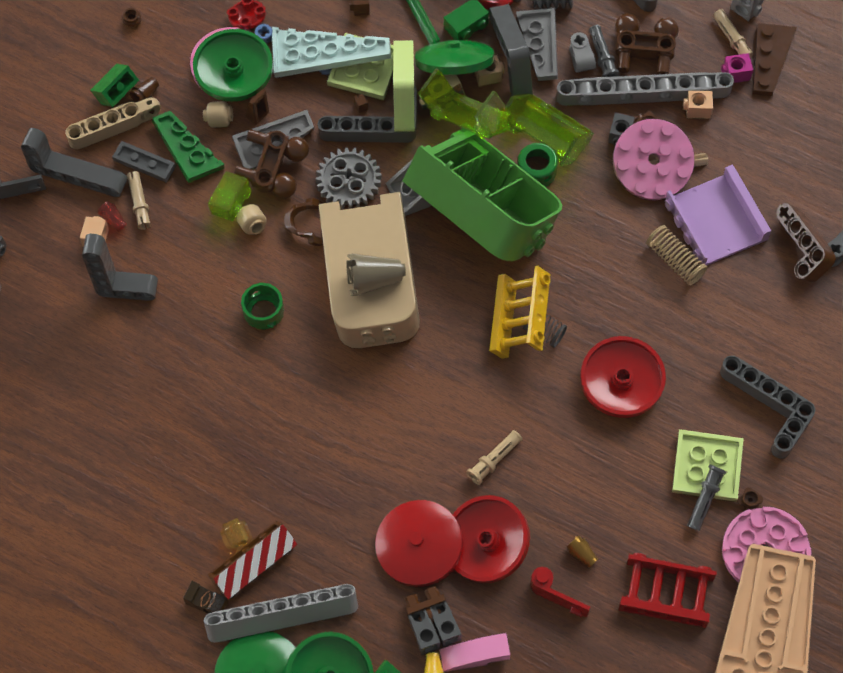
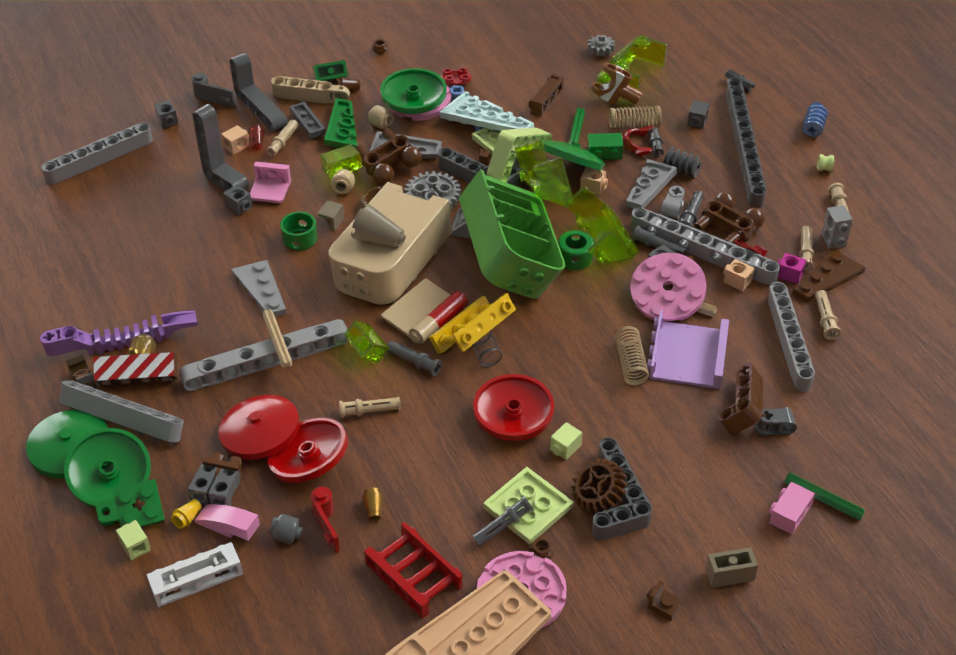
camera: 35 degrees right, 20 degrees down
(162, 299) = (237, 200): none -> dark grey brick
(181, 267) = (270, 182): none -> bright pink bracket
(184, 555) = (71, 339): none -> medium lavender piece
(258, 107) = (413, 130): reddish brown slope -> none
(275, 264) = (332, 211): none -> dark tan panel
(275, 388) = (261, 286): none -> light grey wing
(355, 465) = (262, 355): none -> light grey beam
(361, 444) = (277, 338): none -> tan axle
(437, 391) = (366, 341): none -> clear neon green brick
(455, 321) = (424, 310): none -> tan door
(499, 378) = (421, 361): none -> dark grey pin
(514, 48) = (614, 172): dark grey beam -> none
(532, 627) = (285, 529): none -> dark grey head
(592, 109) = (650, 239): none -> dark grey pin
(689, 381) = (566, 441): none -> yellowish green brick
(693, 66) = (757, 249): none -> red plate
(748, 404) = (592, 484): none -> reddish brown gear
(791, 155) = (790, 337): none -> light grey beam
(807, 110) = (822, 299): none -> tan pin

